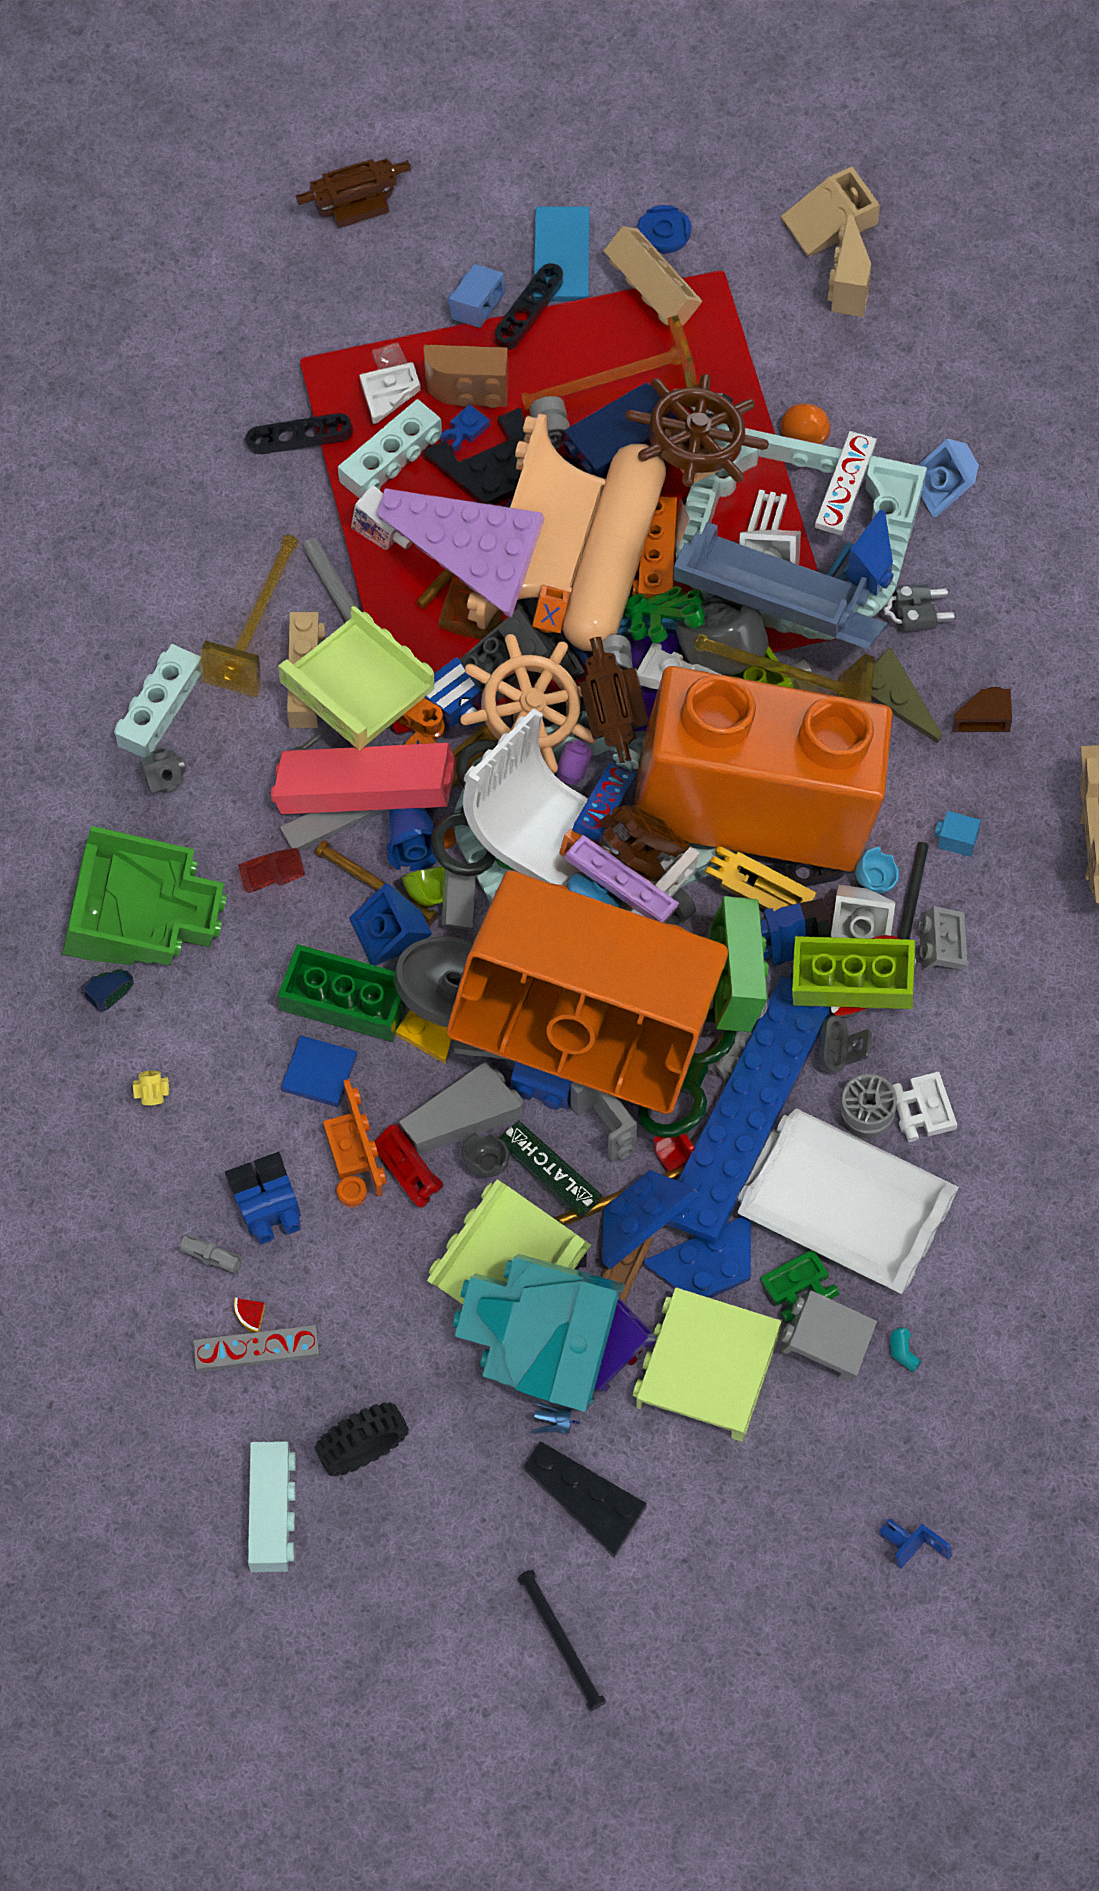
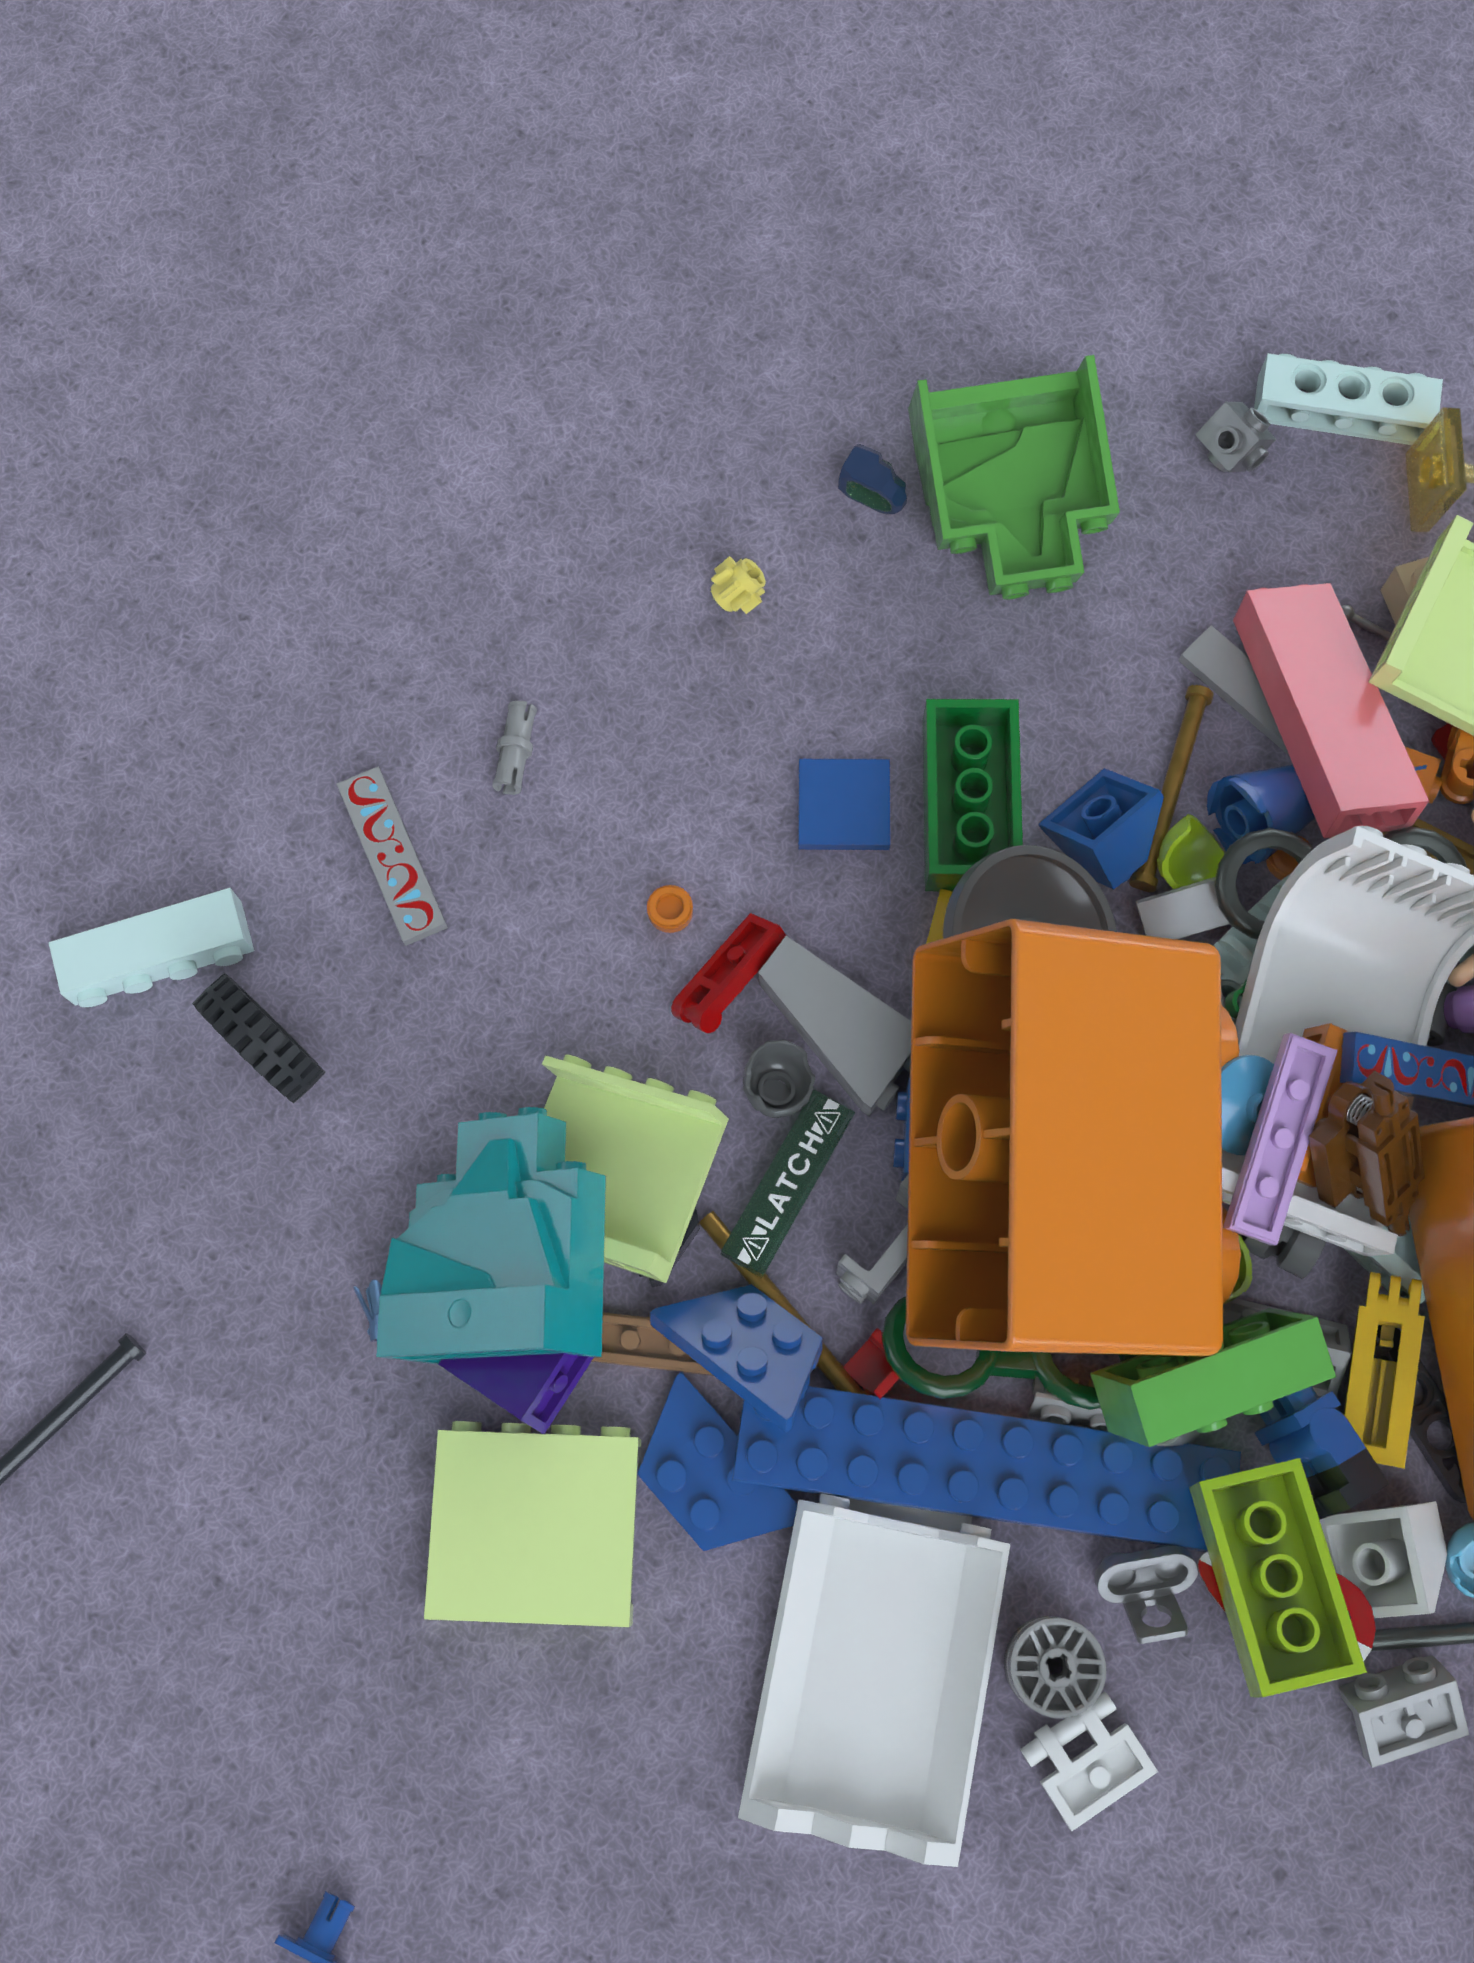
camera: 75 degrees right, 10 degrees up
(249, 1313) = (440, 829): red tile -> none
(265, 1208) = (619, 791): blue hips -> none
(271, 868) = (1140, 635): clear red slope -> none
(350, 1143) = (740, 880): orange bracket -> none
(594, 1502) = (275, 1410): black wing -> none
(794, 1278) = (721, 1626): green plate -> none
(828, 1334) = (626, 1713): light grey panel -> none
(900, 1349) = (649, 1839): teal arm -> none

